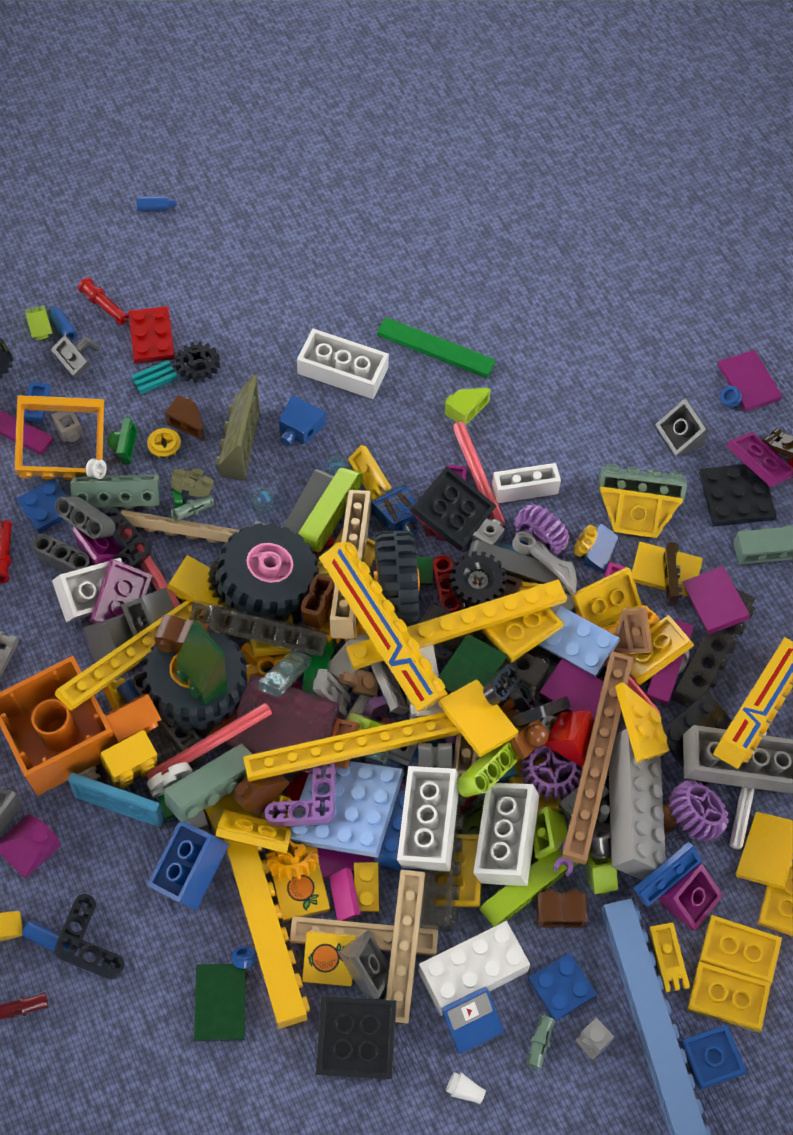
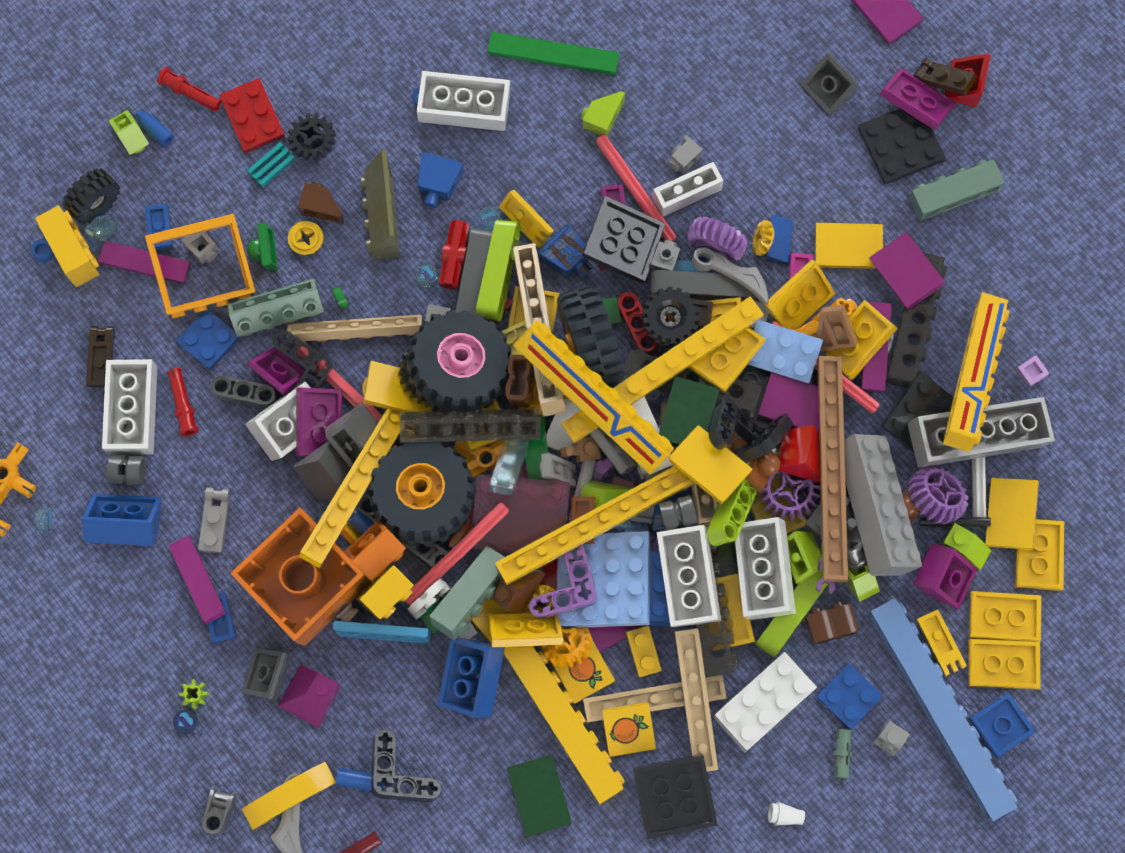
camera: 10 degrees left, 15 degrees up
(71, 354) = (177, 163): dark grey plate -> none
(85, 517) = (256, 348): dark grey beam -> none
(96, 468) = (249, 291): white bush -> none
(173, 633) = (399, 458): reddish brown brick -> none
(192, 481) = (349, 277): olive plate -> none
(192, 508) = (358, 304): sand green pin -> none
(201, 665) = (431, 489): dark green slope -> none
(244, 957) = (549, 749): blue tile -> none
(293, 487) = (454, 255): none -> red piece
(344, 895) = (625, 665): dark pink tile -> none
(366, 964) = (666, 727): dark grey slope -> none
(472, 1020) = (776, 752): blue tile -> none
(532, 455) = (685, 156): none -> light grey brick
(638, 511) = (808, 191): yellow wing -> none
(641, 481) = (804, 159): sand green brick -> none
(642, 725) = (867, 427): yellow wing -> none
(668, 874) = (924, 568): blue tile -> none
(671, 574) = (856, 252): dark brown plate -> none
(713, 844) = (962, 521): none -> black bar
(719, 869) = (967, 544): none -> lime slope
(730, 396) = (871, 33): blue tile -> none

